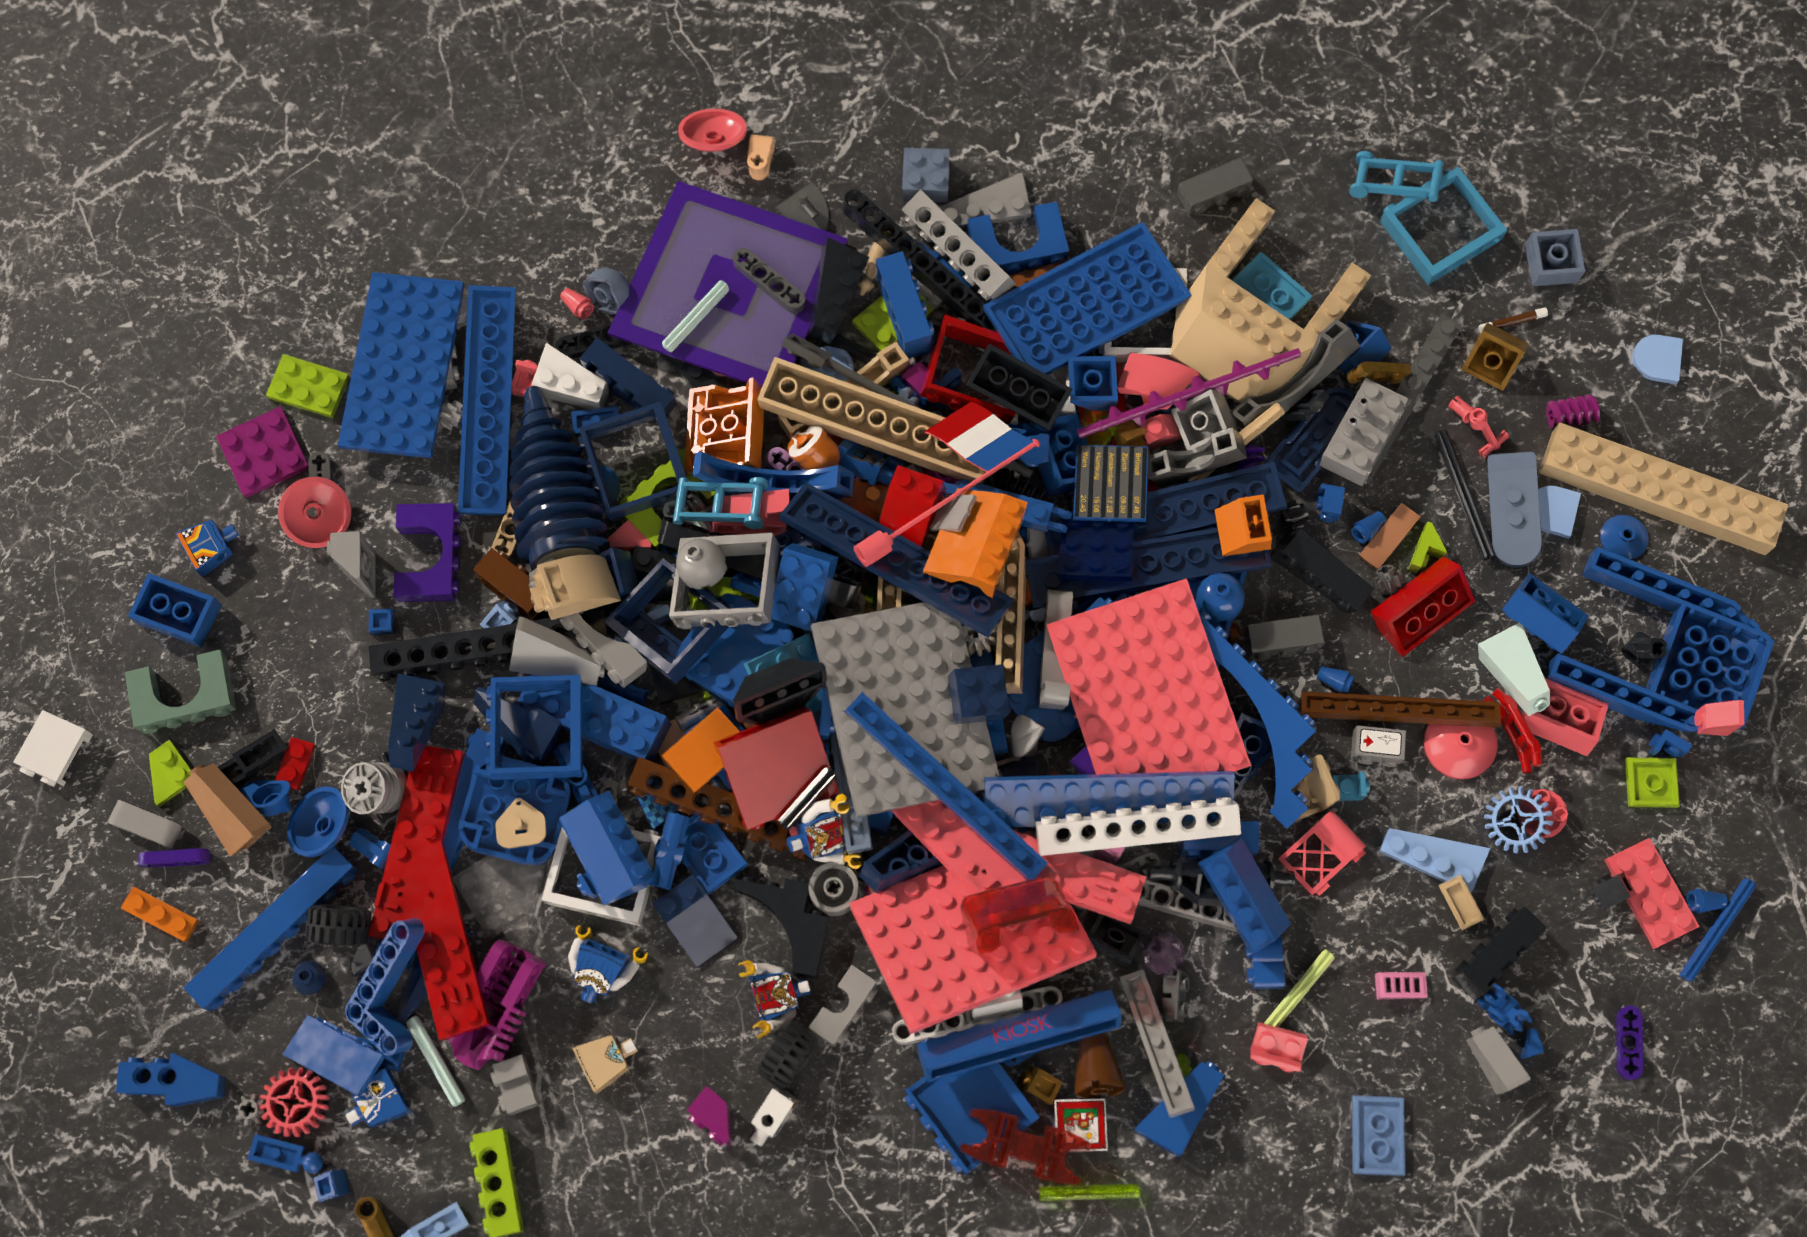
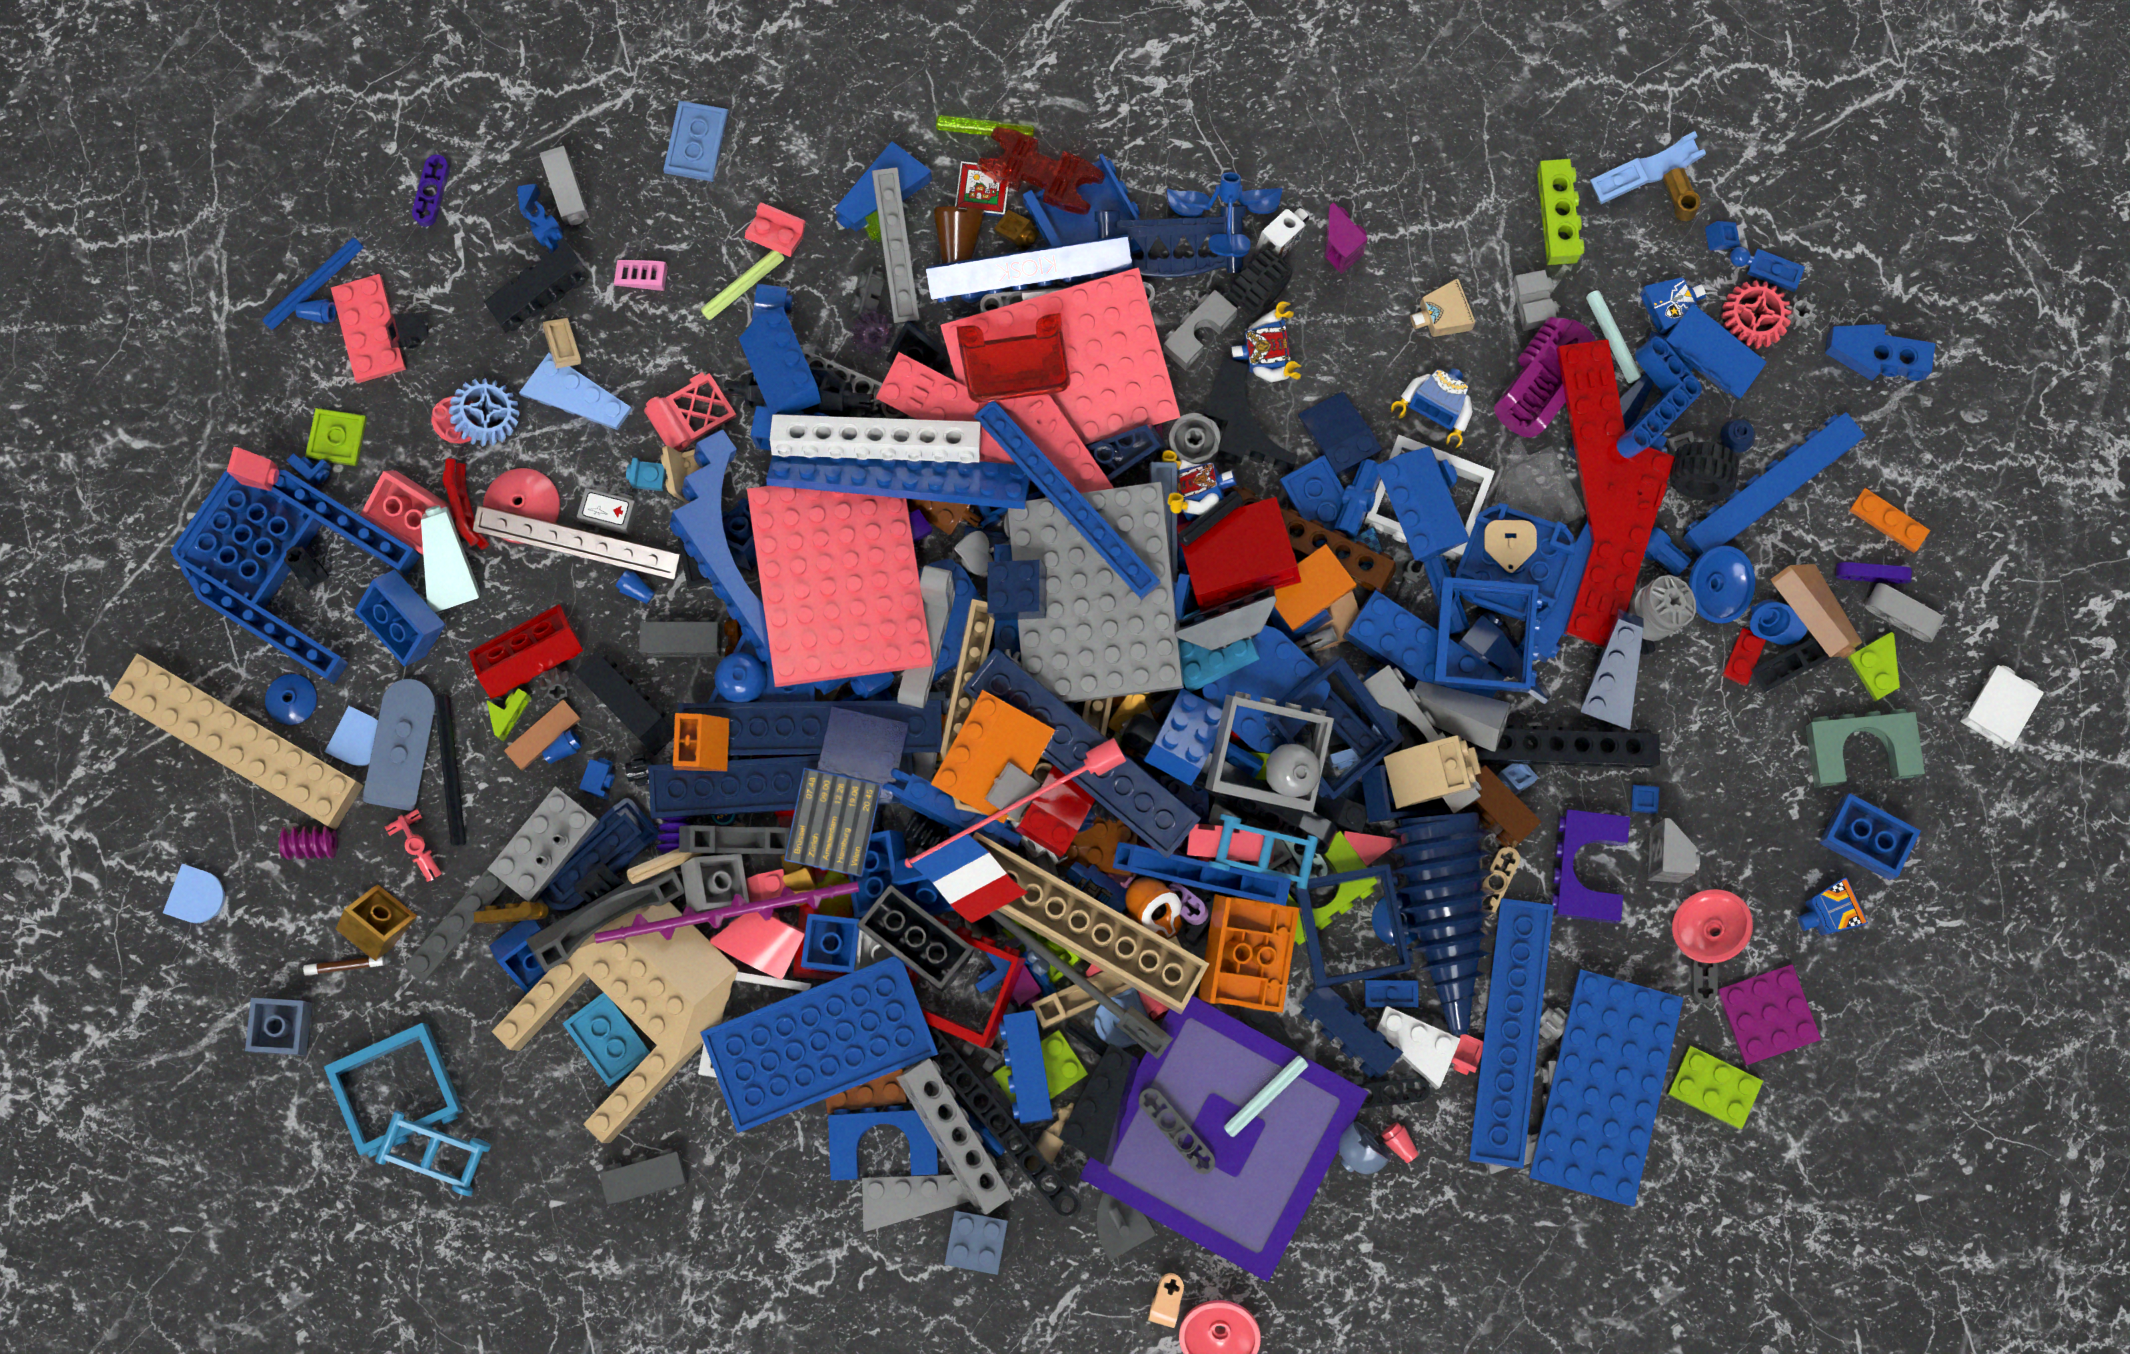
camera: 170 degrees left, 5 degrees up
(832, 1108) = (1170, 233): none -> dark blue piece
(868, 1139) = (1230, 188): none -> blue plant

